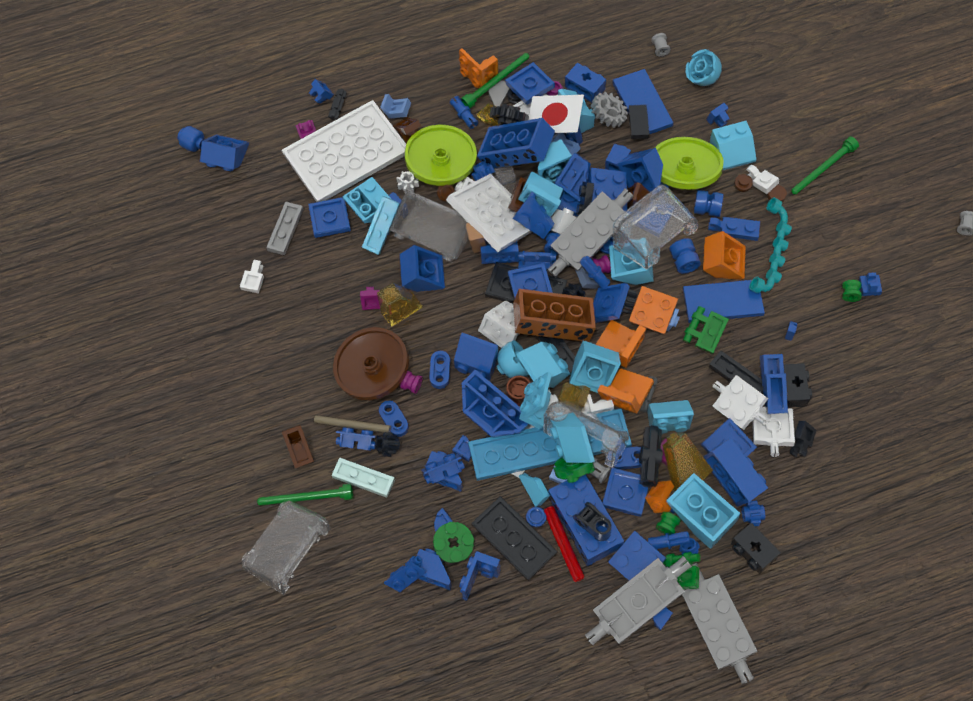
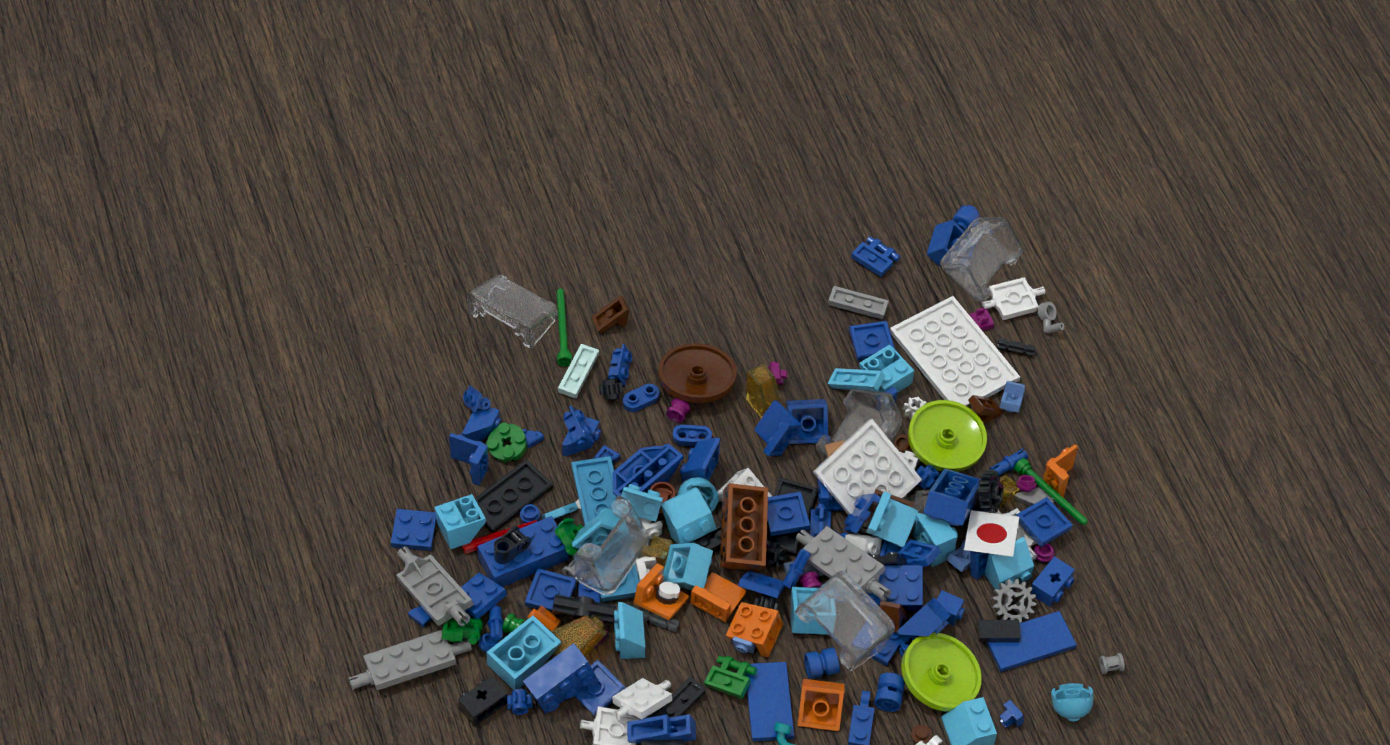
camera: 85 degrees right, 10 degrees down
(226, 118) = (979, 255): none -> clear windscreen
(233, 217) = (874, 260): none -> blue plate
(253, 279) = (798, 276): white plate -> none
(284, 104) = (1013, 298): none -> white plate
(301, 79) = (1047, 313): none -> light grey plate
(322, 90) = (1032, 331): blue tile -> none
(352, 424) = (635, 361): dark tan bar -> none
(437, 291) = (777, 429): none -> blue bracket
(488, 97) = (1026, 483): none -> magenta plate
(555, 579) = (459, 520): none -> medium azure slope
(559, 631) = (413, 529): none -> blue plate
(625, 382) = (668, 593): none -> white piece

